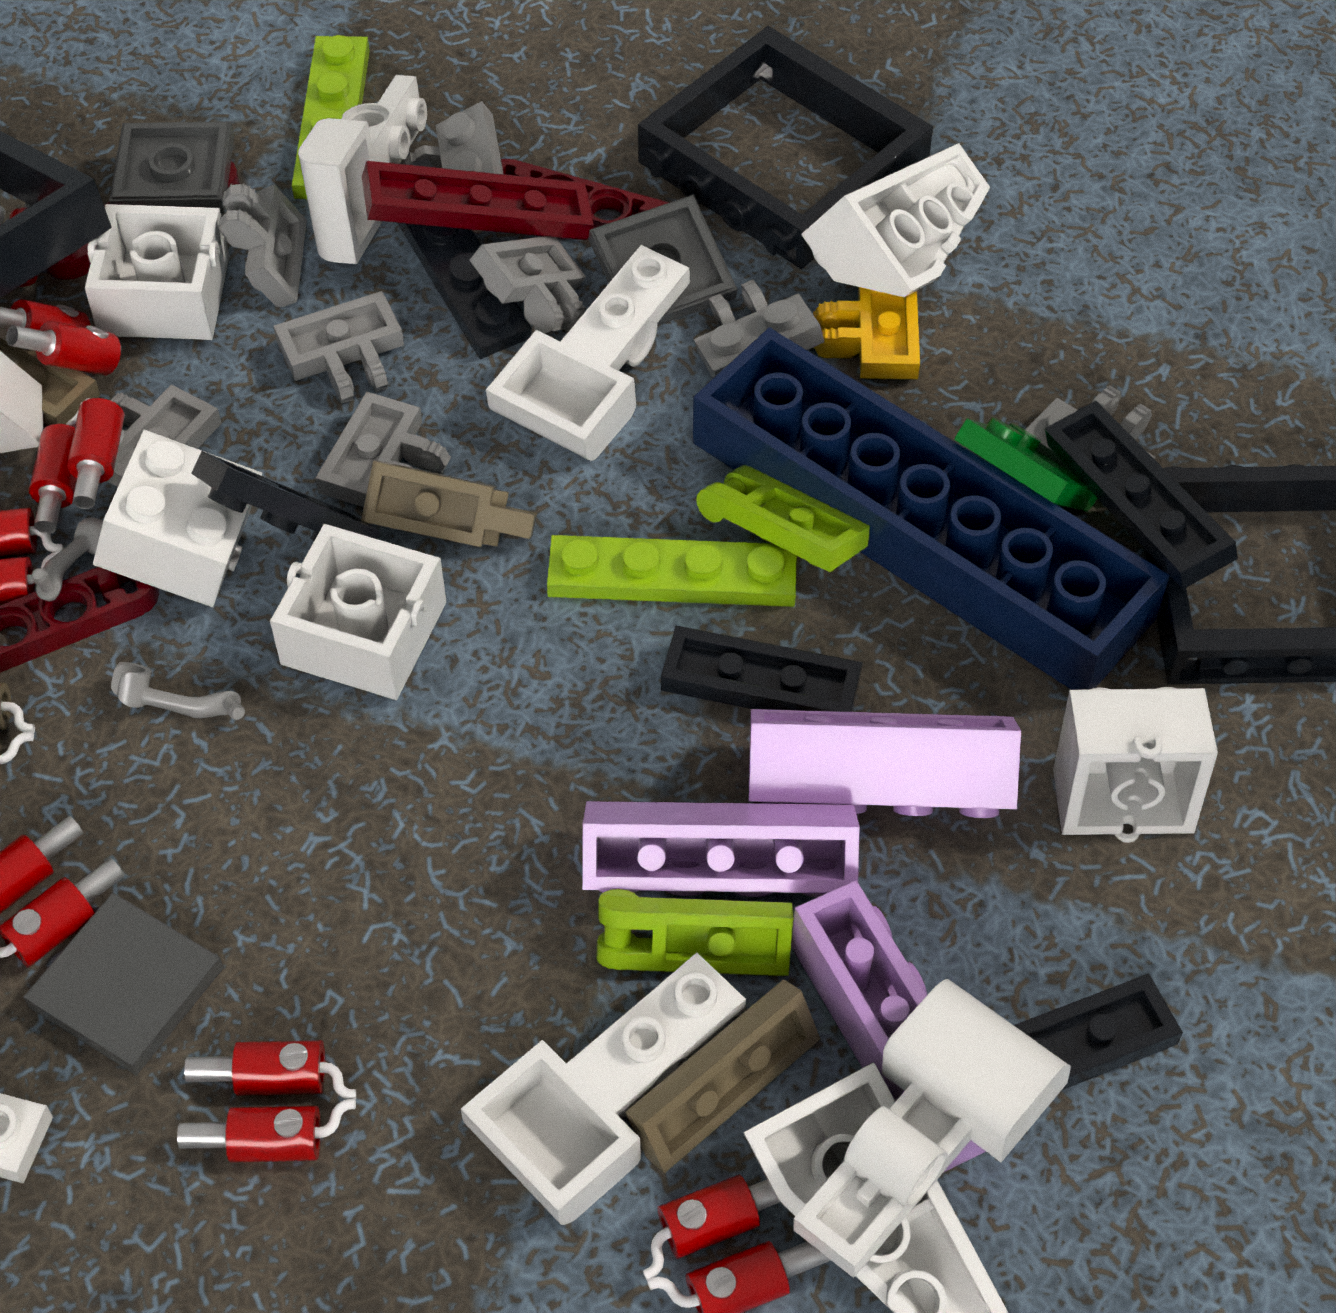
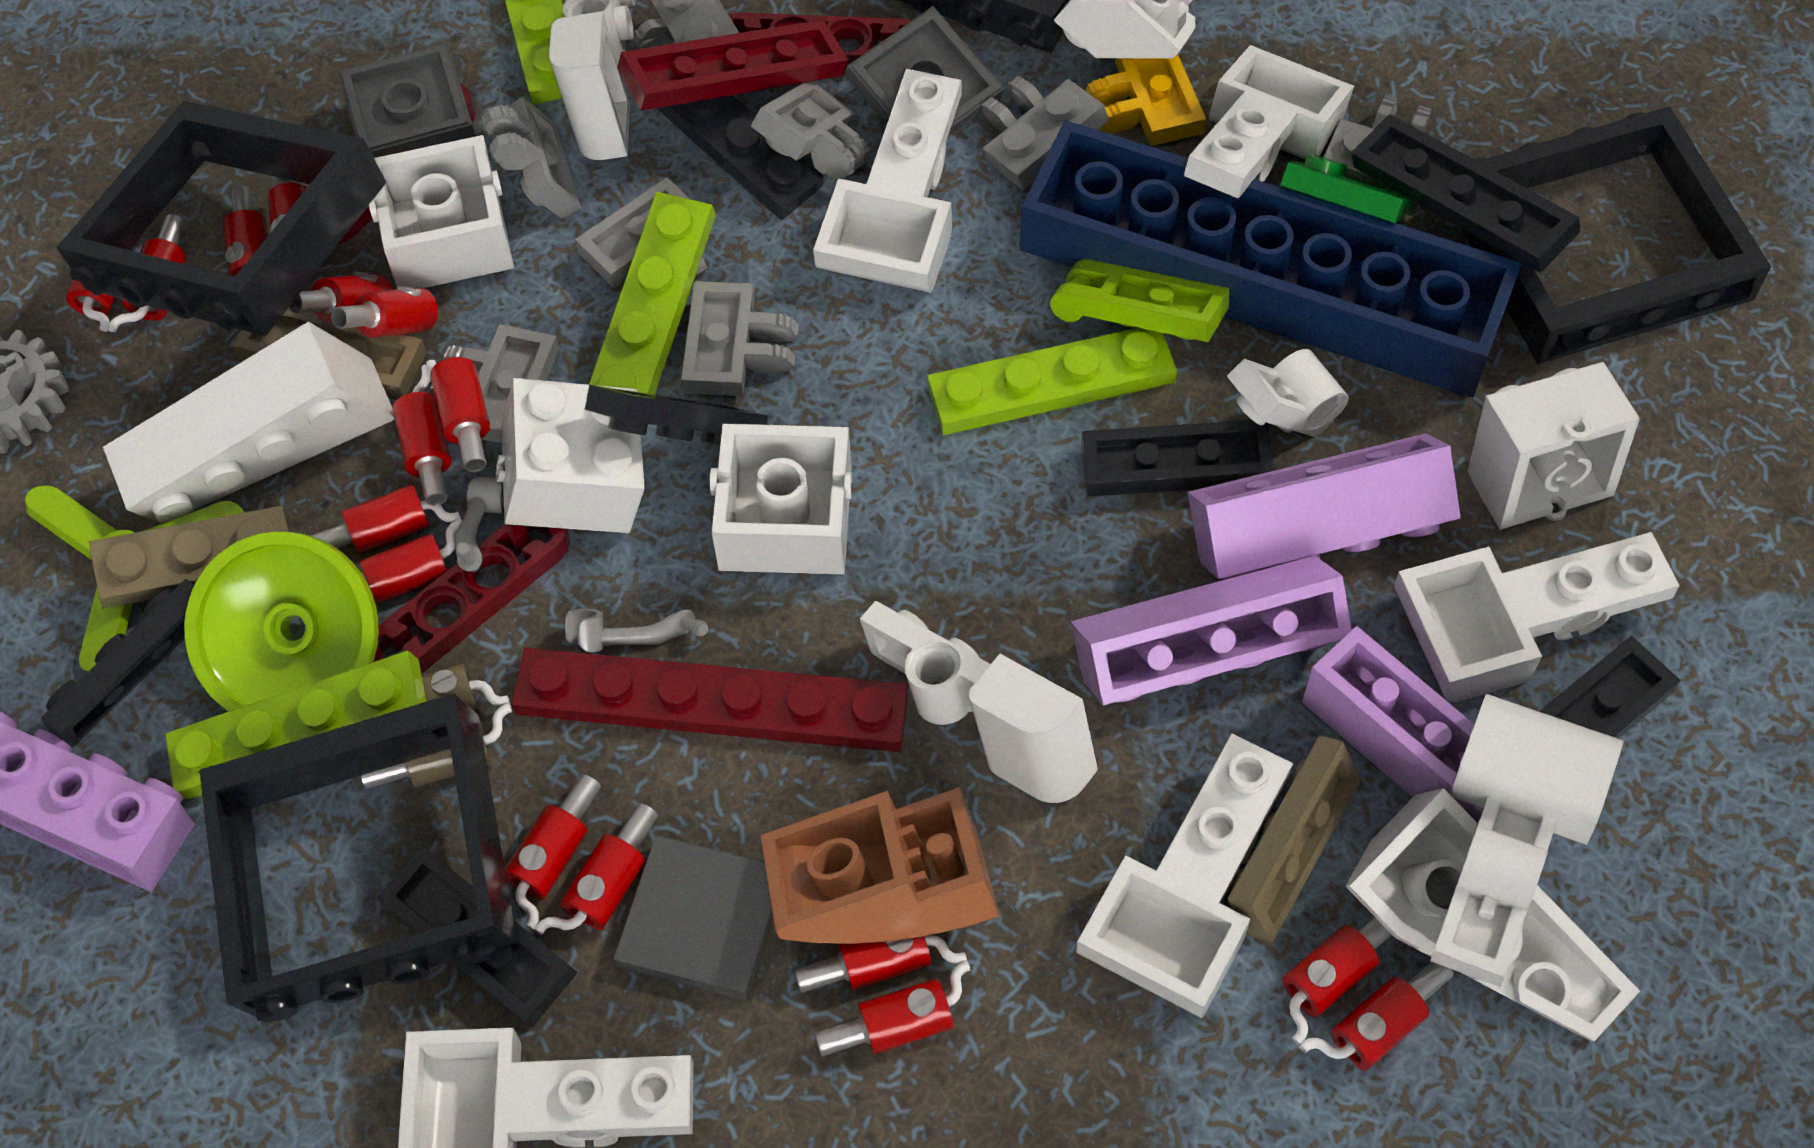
camera: 15 degrees left, 5 degrees up
(225, 783) = (711, 699): none -> dark red plate
(301, 986) = (878, 872): none -> nougat slope
(322, 394) = (654, 294): none -> lime plate
(442, 506) = (815, 375): dark tan hinge -> none
(488, 873) = (1027, 725): none -> white plate
(725, 933) = (1250, 707): lime plate -> none
(894, 646) = (1292, 395): none -> white plate
(972, 364) = (1263, 109): none -> white plate
(998, 914) = (1483, 622): none -> white plate

